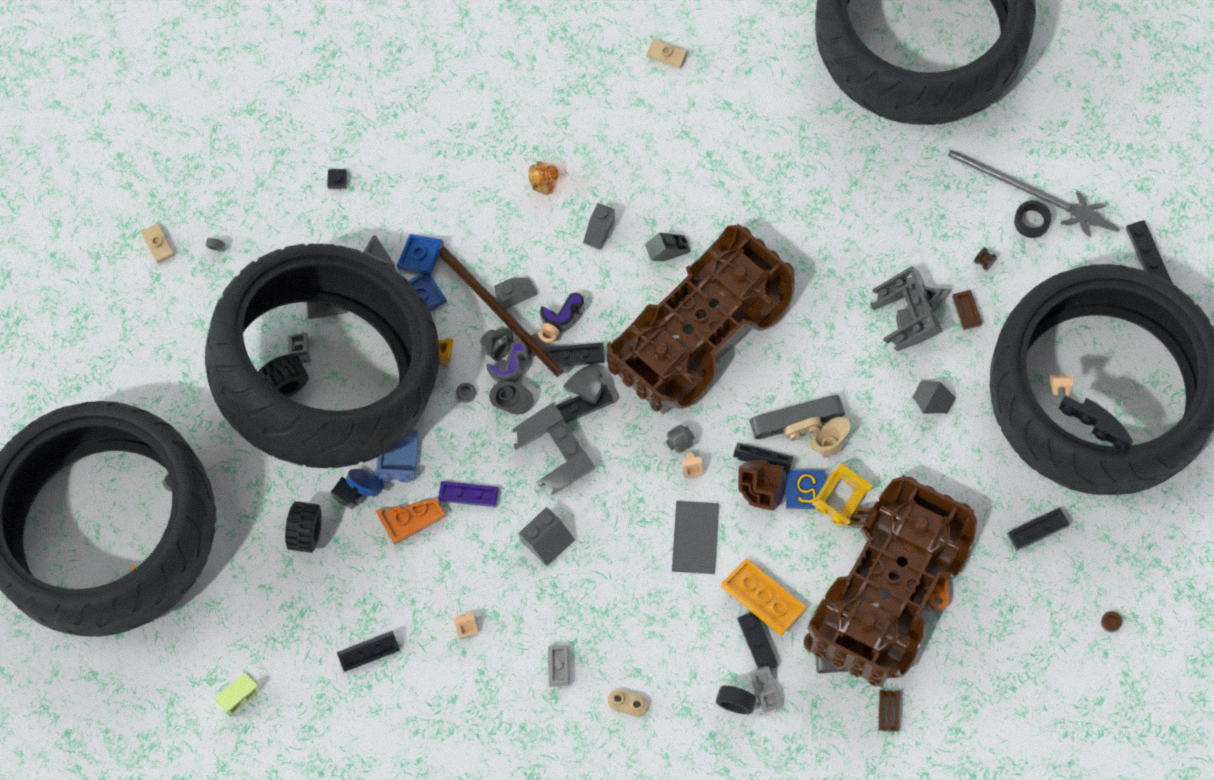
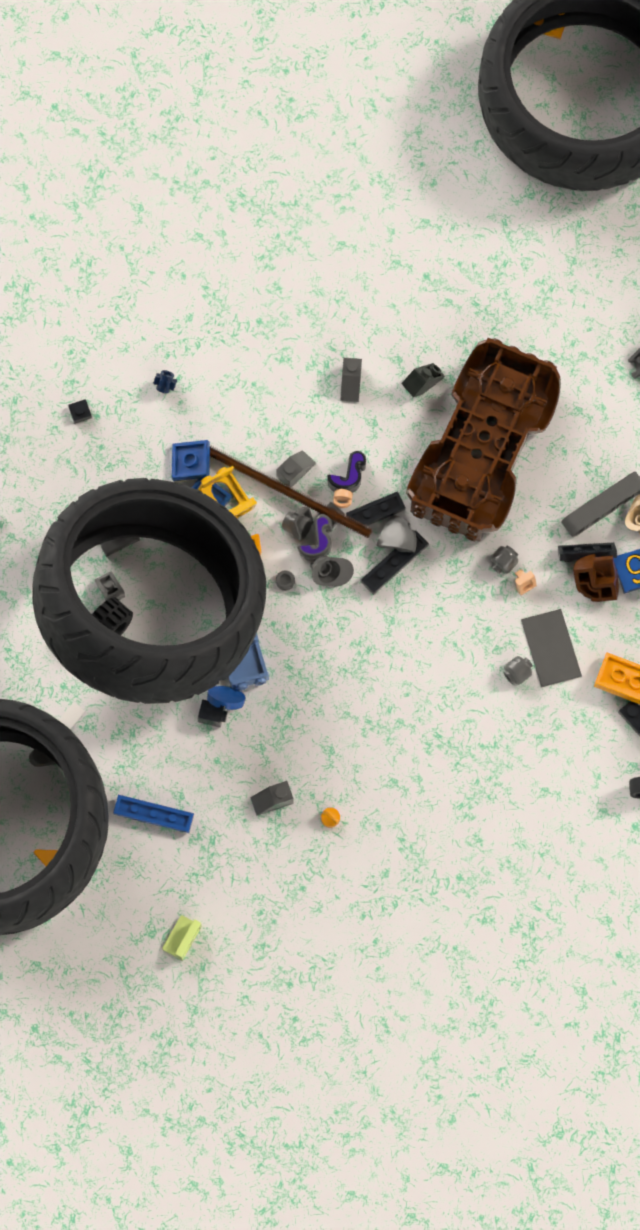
camera: 25 degrees left, 5 degrees up
(256, 569) = (153, 813): none -> blue plate
(303, 527) = (186, 759): black tyre -> none
(368, 651) = (290, 856): black plate -> none
(373, 591) = (272, 798): none -> dark grey slope
(376, 250) = (149, 470): dark grey slope -> none
(410, 519) = (280, 719): orange wing -> none
(420, 628) = (330, 817): none -> light orange tile
(424, 175) = (165, 381): none -> dark blue gear
(446, 278) = (225, 476): none -> yellow panel
(466, 625) = (372, 800): light nougat tile -> none
(468, 494) = (325, 676): dark purple tile -> none
(541, 175) = (278, 346): clear orange piece -> none
(546, 536) = (415, 693): dark grey slope -> none
(558, 665) = (472, 810): light grey plate -> none
(577, 461) = (417, 611): dark grey wedge -> none
(626, 704) = (548, 823): tan plate -> none
(653, 547) = (518, 670): none -> dark grey head
(666, 53) = (349, 189): tan plate -> none
(803, 427) = (608, 517): tan plate -> none

